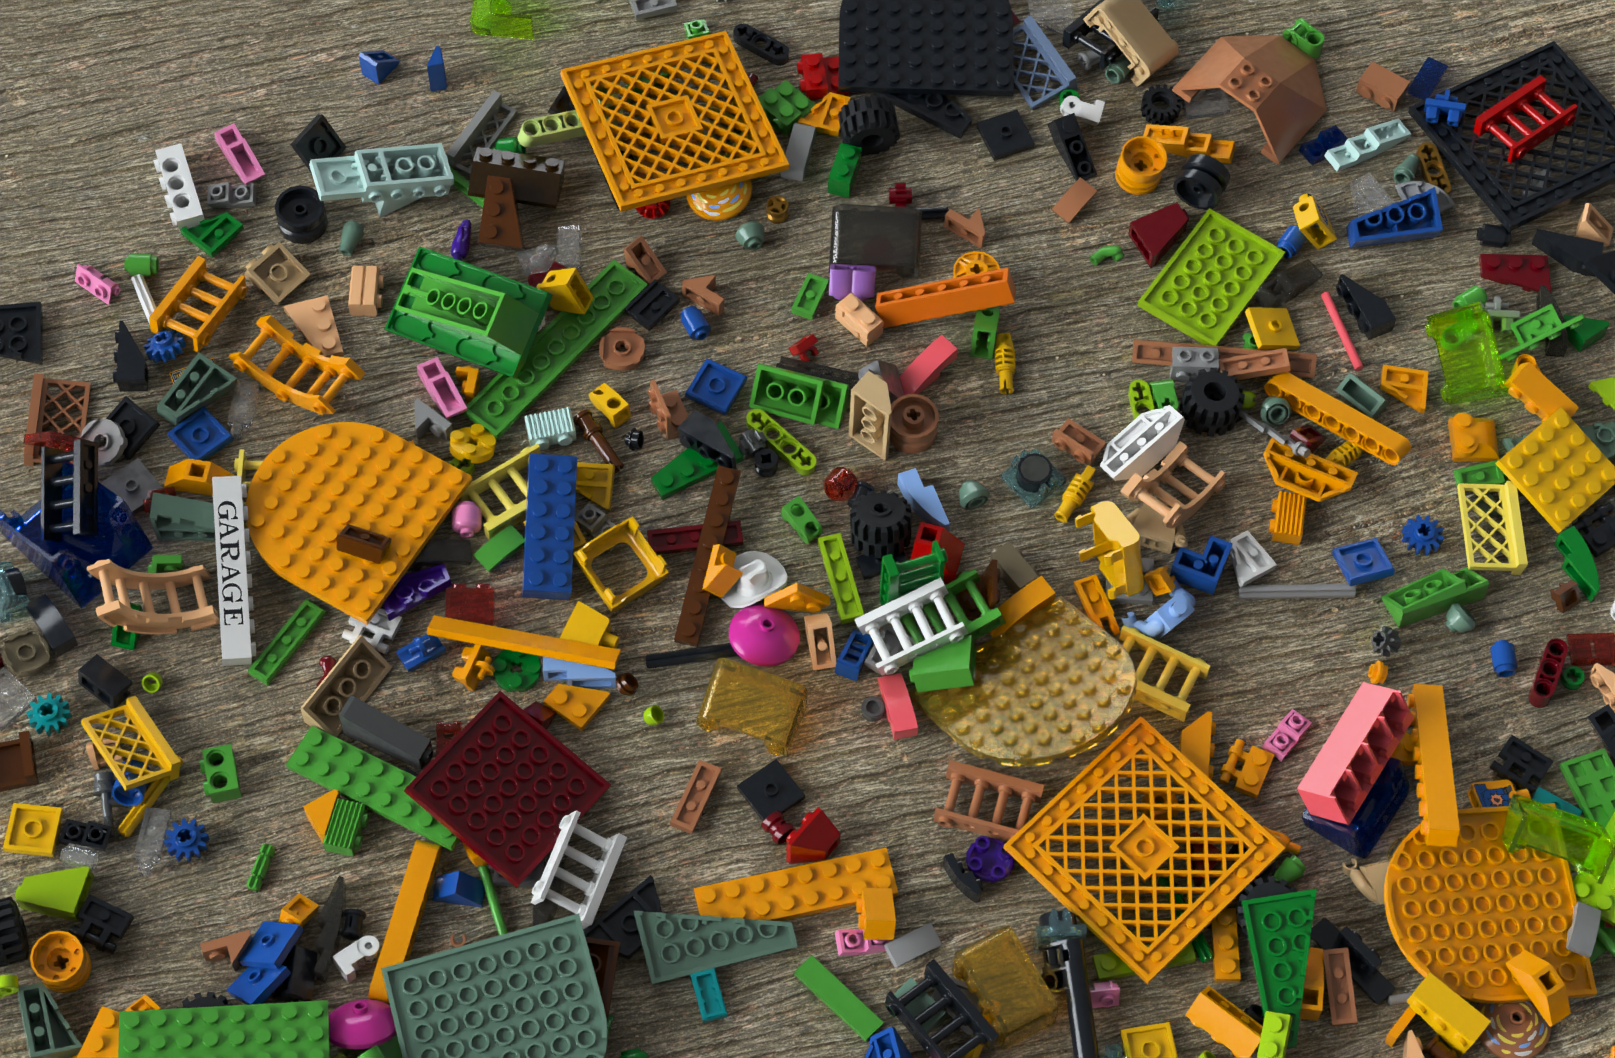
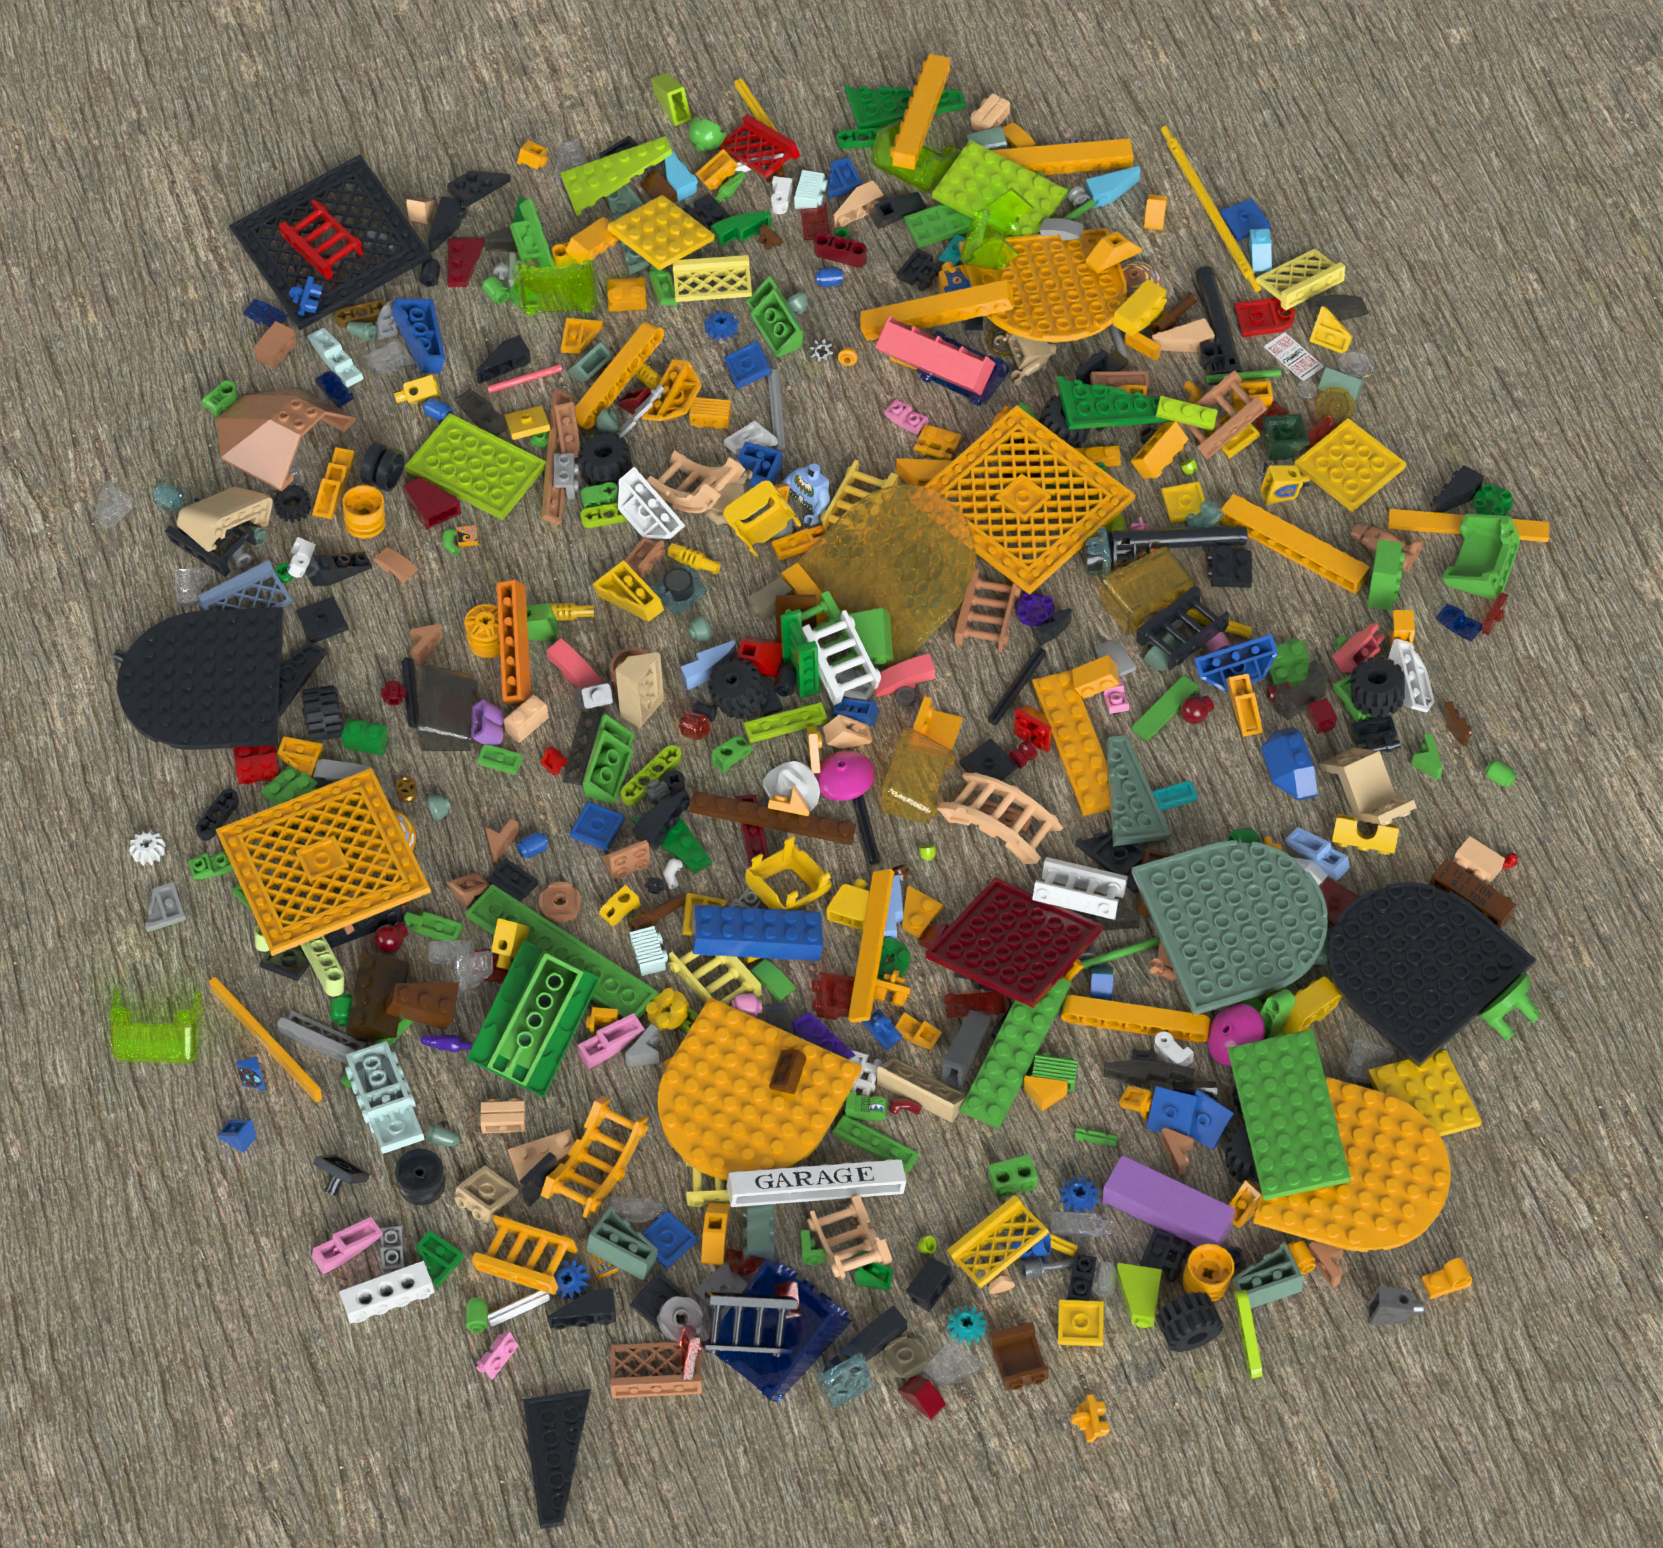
camera: 90 degrees left, 5 degrees down
(83, 992) = (1236, 1252): none -> black plate
(103, 544) = (789, 1289): none -> bracket
(151, 929) = (1167, 1204): none -> medium lavender piece
(274, 307) = (534, 1180): none -> black plate
(329, 630) = (866, 1107): none -> bright green leg
(420, 692) = (916, 1032): none -> light orange slope
(482, 86) = (265, 1039): none -> light orange tile
(592, 193) = (390, 937): none -> dark red piece
(602, 234) = (433, 926): none -> bright green hinge
(650, 455) = (669, 873): none -> white arm
(672, 774) = (958, 813): none -> light nougat fence
(823, 734) = (937, 725): none -> light orange bracket
(830, 1031) = (1196, 709): none -> dark red piece
(880, 831) = (1016, 686): none -> black axle
(1025, 423) = (628, 591): none -> yellow wedge
(1115, 271) = (467, 536): none -> tile

